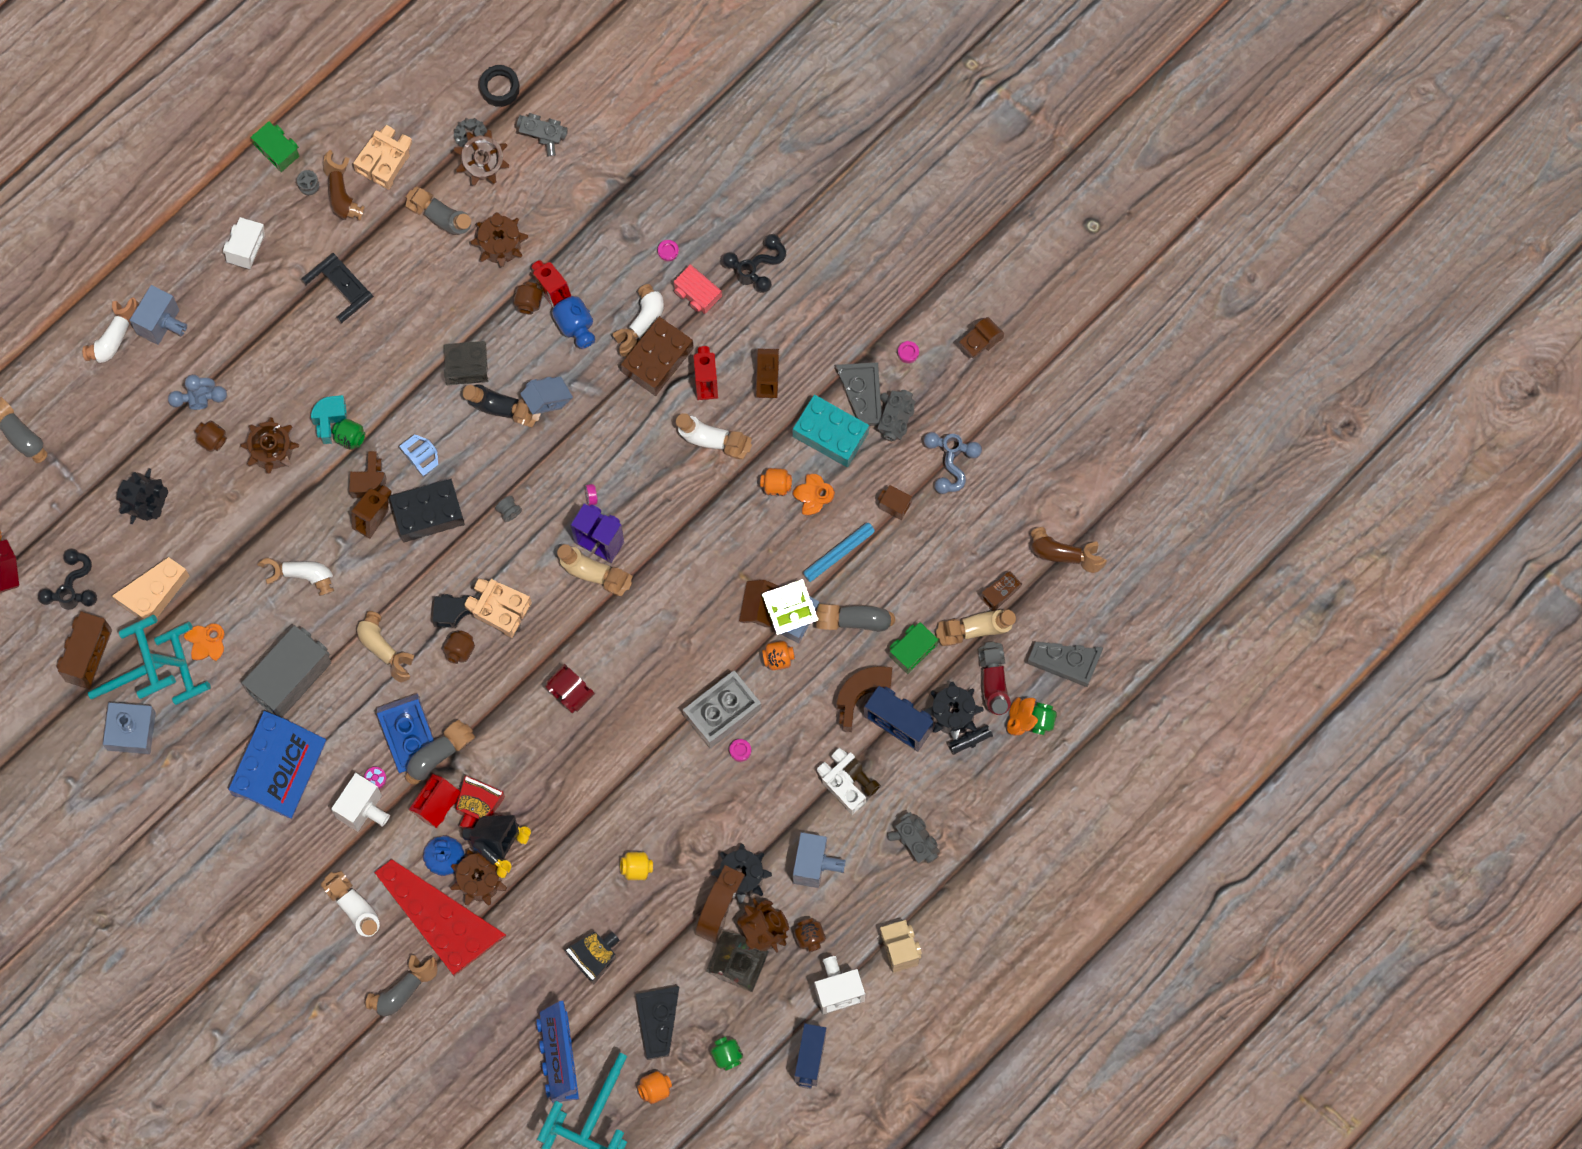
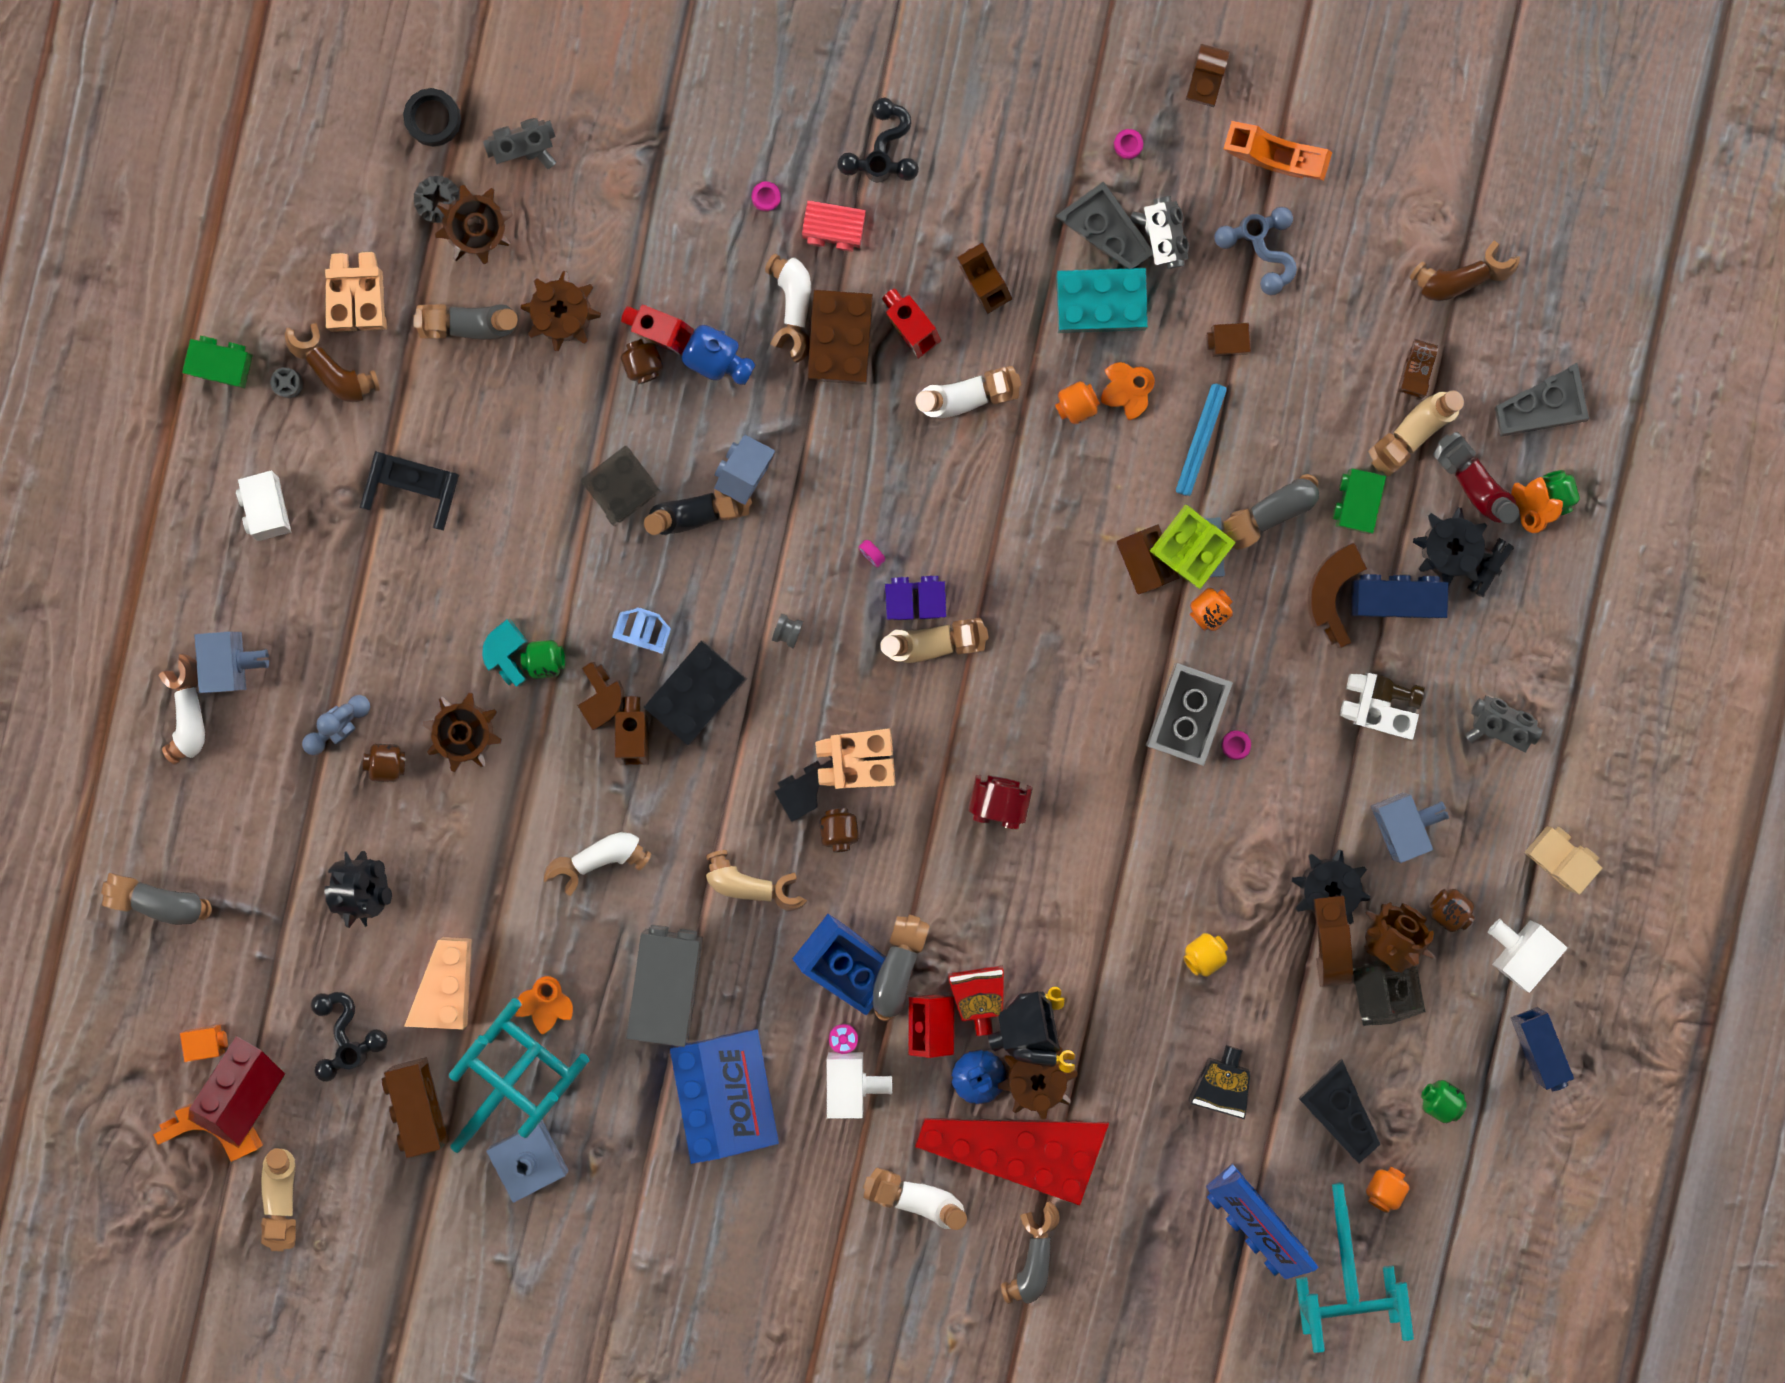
camera: 30 degrees left, 15 degrees up
(992, 407) = (1276, 154): none -> orange arch

